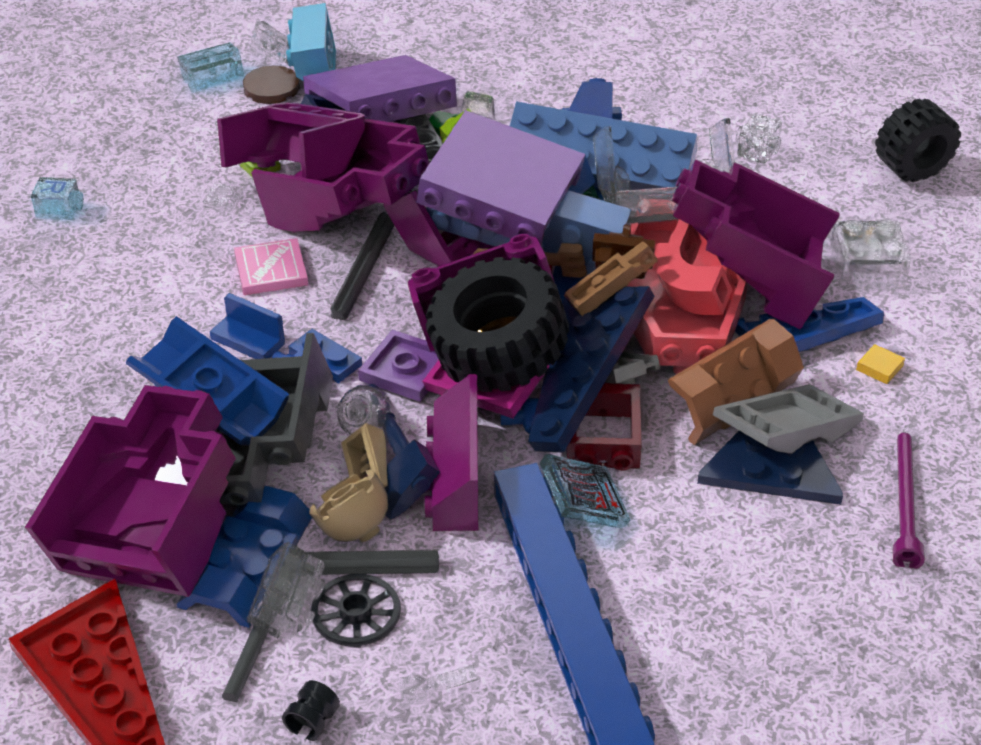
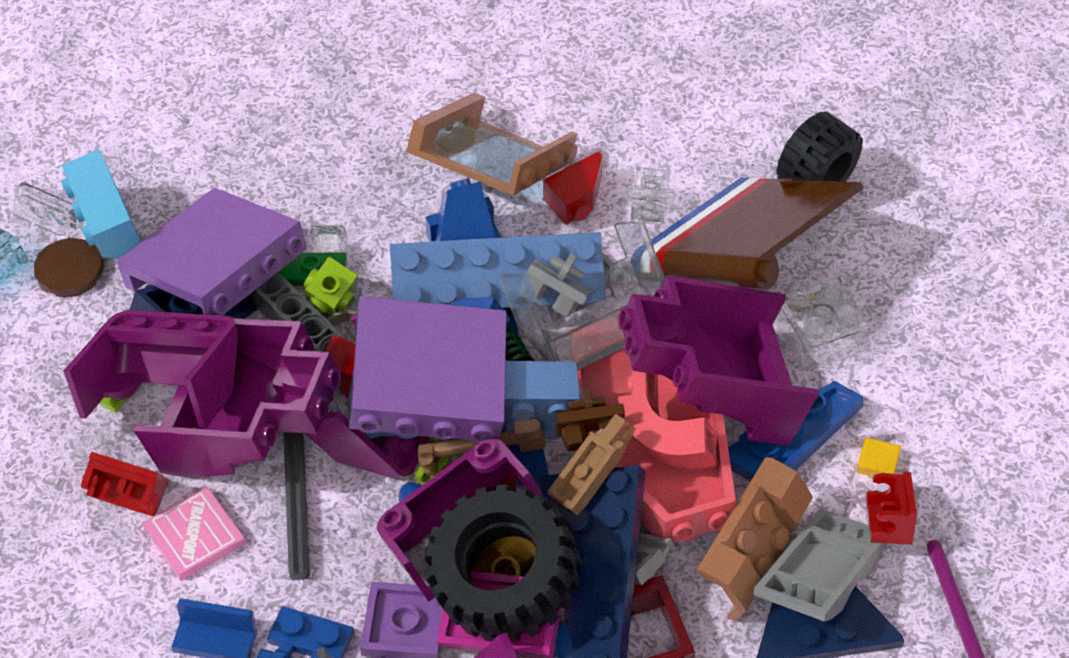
camera: 20 degrees left, 10 degrees up
(233, 217) = (124, 484): none -> red hinge
(623, 63) = (485, 153): none -> panel
(631, 151) = (570, 291): none -> light grey hips
(699, 117) = (574, 189): none -> red slope
(818, 173) = (743, 227): none -> reddish brown door
(874, 402) = (892, 512): none -> red hinge

